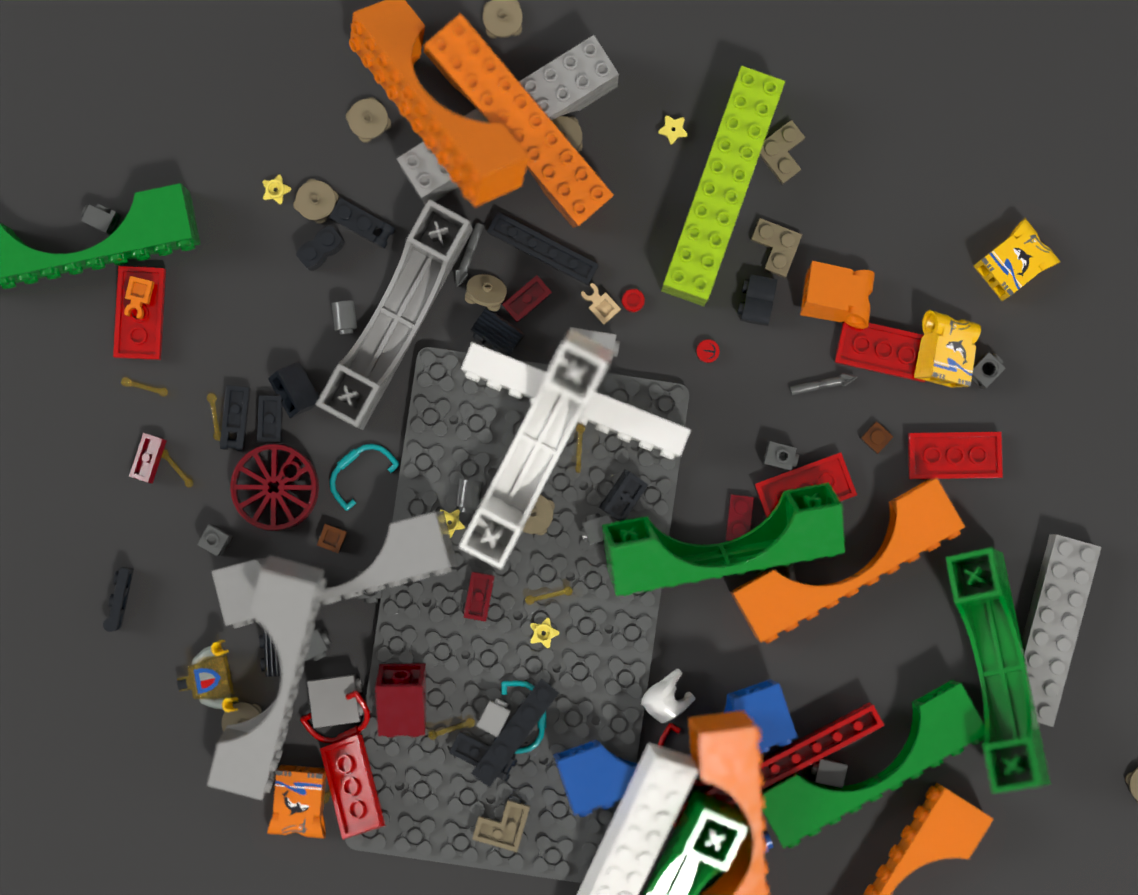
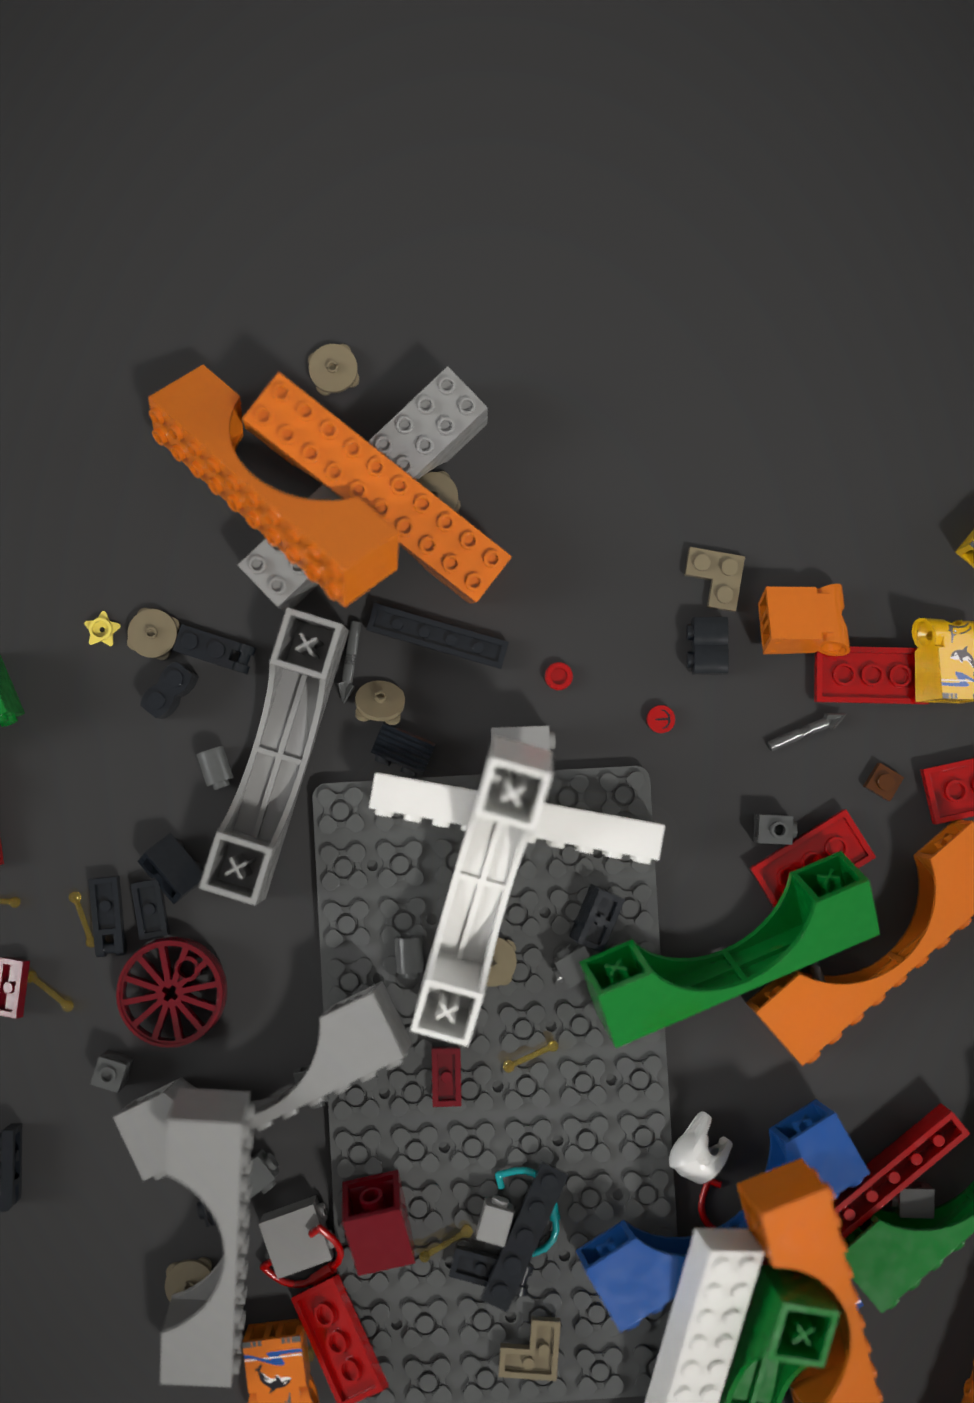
camera: 20 degrees left, 0 degrees up
(210, 678) = (141, 1242): torso -> none
(332, 538) = (254, 1038): reddish brown plate -> none
(349, 458) = (256, 936): teal piece -> none
(368, 119) = (196, 522): dark tan piece -> none
(456, 524) = (400, 991): light yellow plate -> none
(527, 298) = (431, 700): dark red plate -> none
(544, 639) = (533, 1110): light yellow plate -> none
(580, 429) = (528, 848): clear yellow hinge -> none
(603, 306) = (524, 691): tan plate -> none
(673, 135) = (557, 464): light yellow plate -> none
(723, 186) = (641, 517): lime arch -> none
(739, 516) = (739, 911): dark red plate -> none
(776, 150) = (692, 465): dark tan plate -> none

